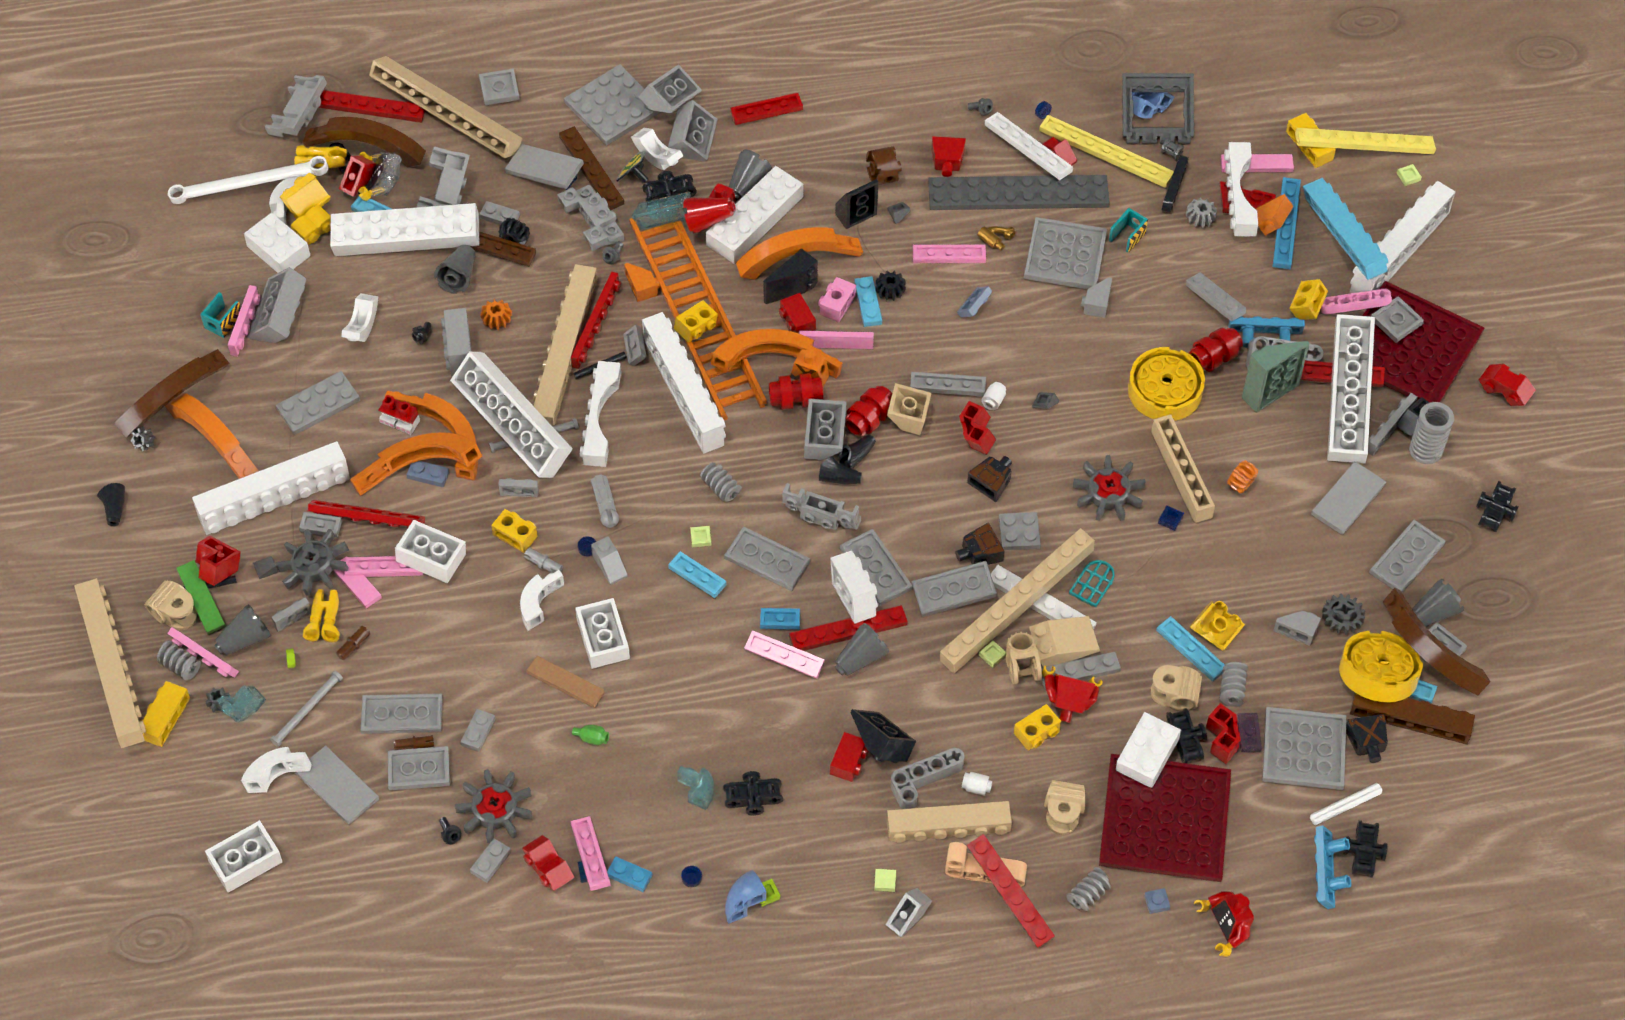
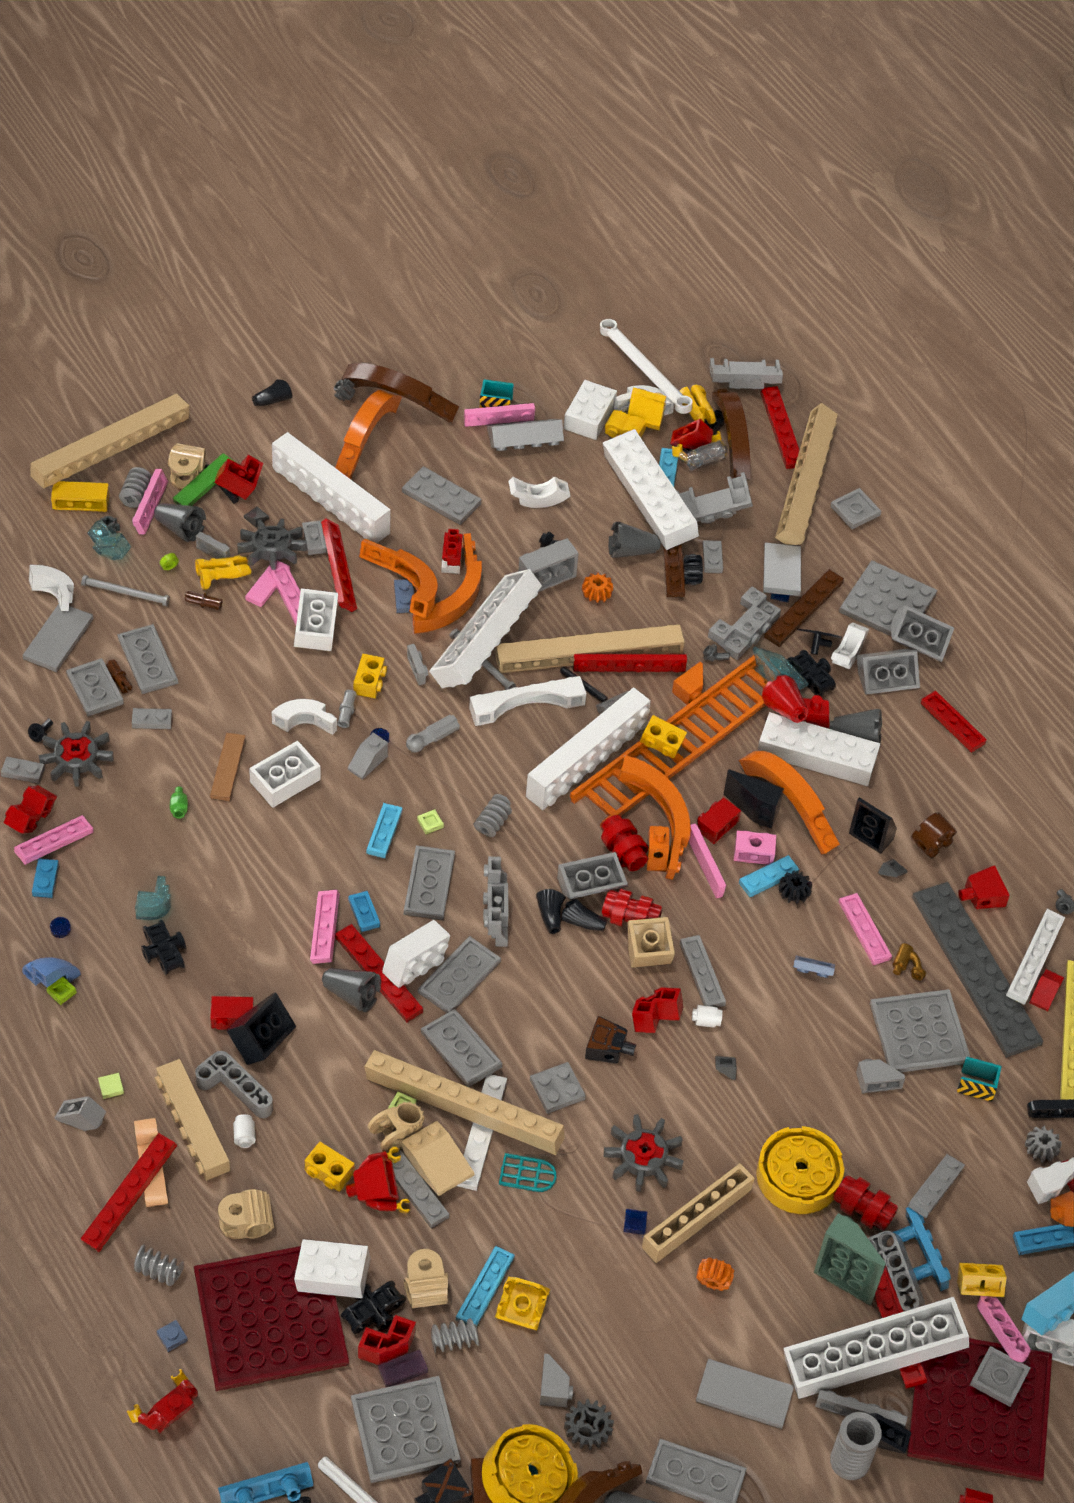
camera: 65 degrees right, 5 degrees down
(981, 546) = (520, 1056): torso -> none

